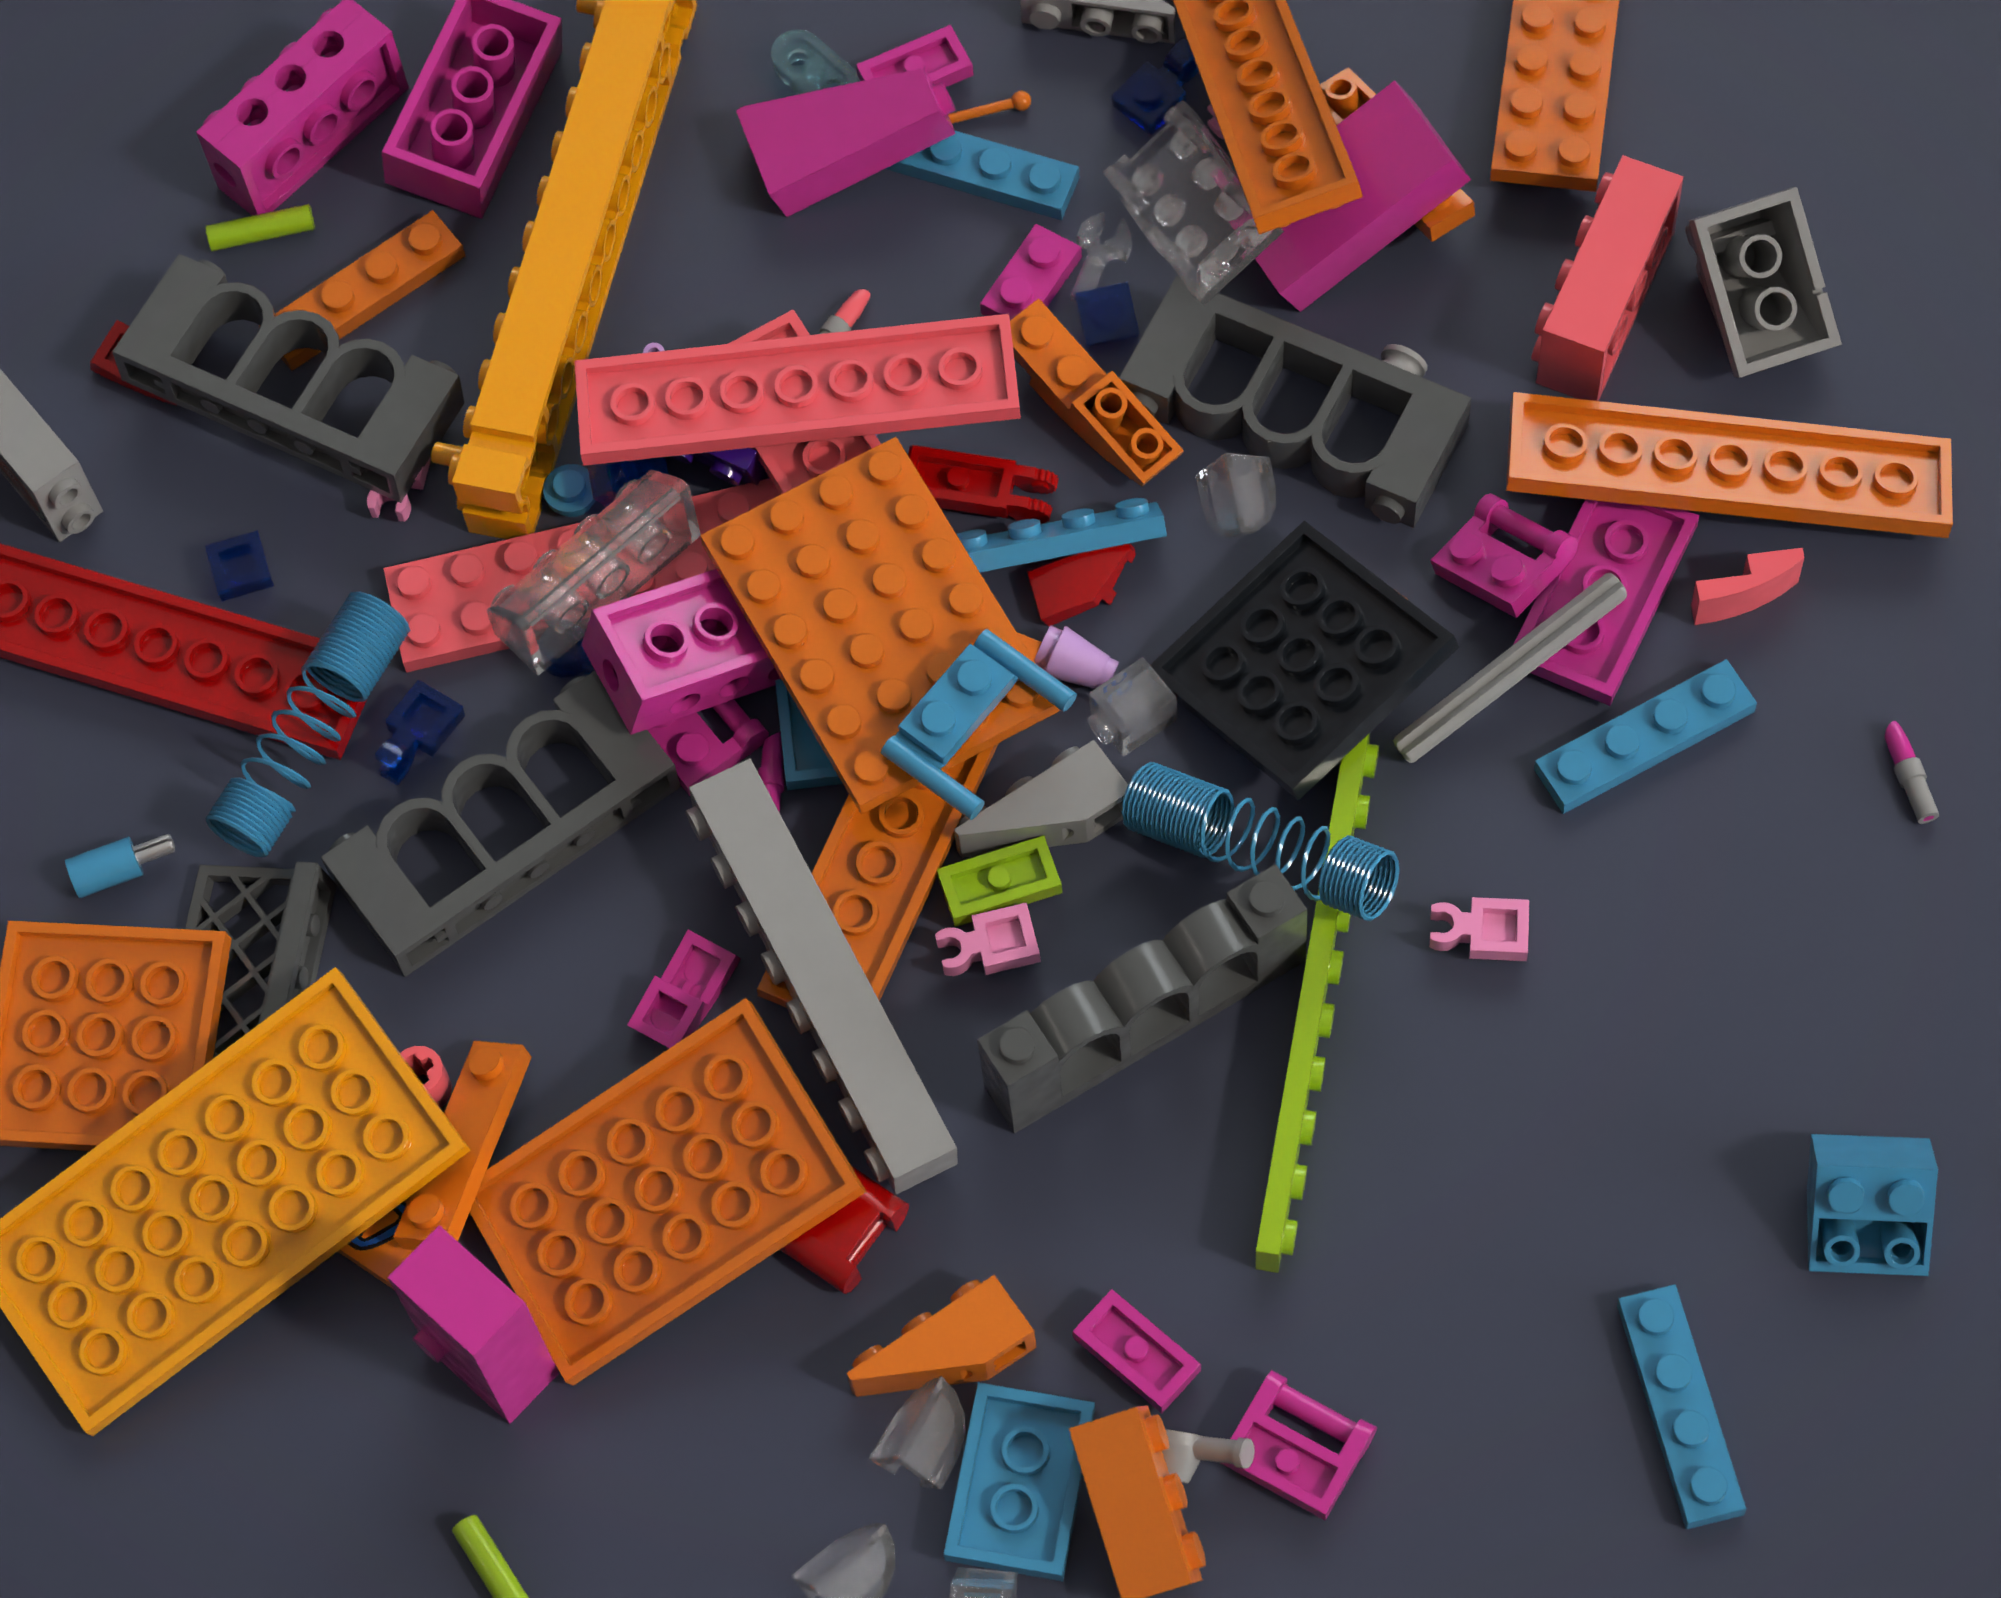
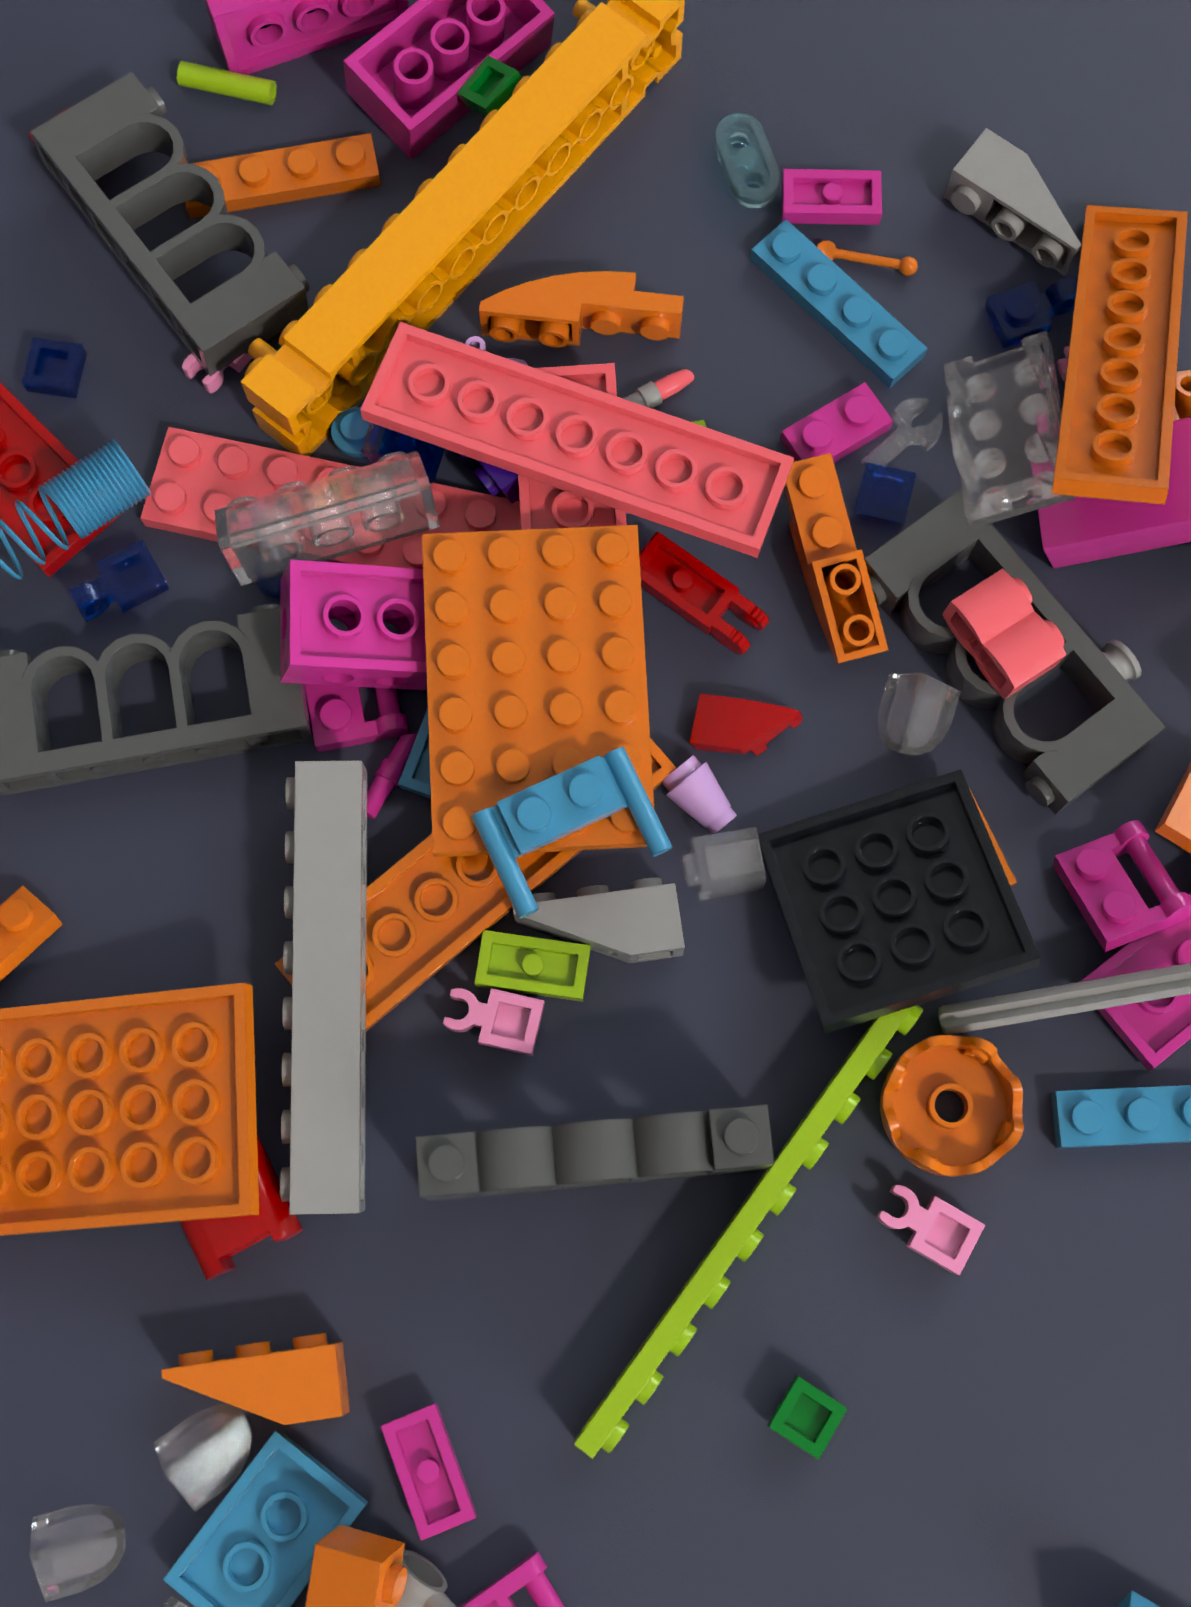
camera: 20 degrees right, 10 degrees up
(537, 114) = (489, 86): none -> green plate
(685, 992) = (219, 930): dark pink slope -> none
(709, 285) = (561, 305): none -> orange slope
(843, 134) = (739, 225): dark pink slope -> none
(1074, 534) = (753, 679): dark azure plate -> none
(1201, 816) = (728, 1001): dark azure piece -> none
(1281, 380) = (1005, 633): none -> coral brick
(1454, 1139) = (807, 1417): none -> green plate
(1455, 780) = (990, 1099): none -> orange plate

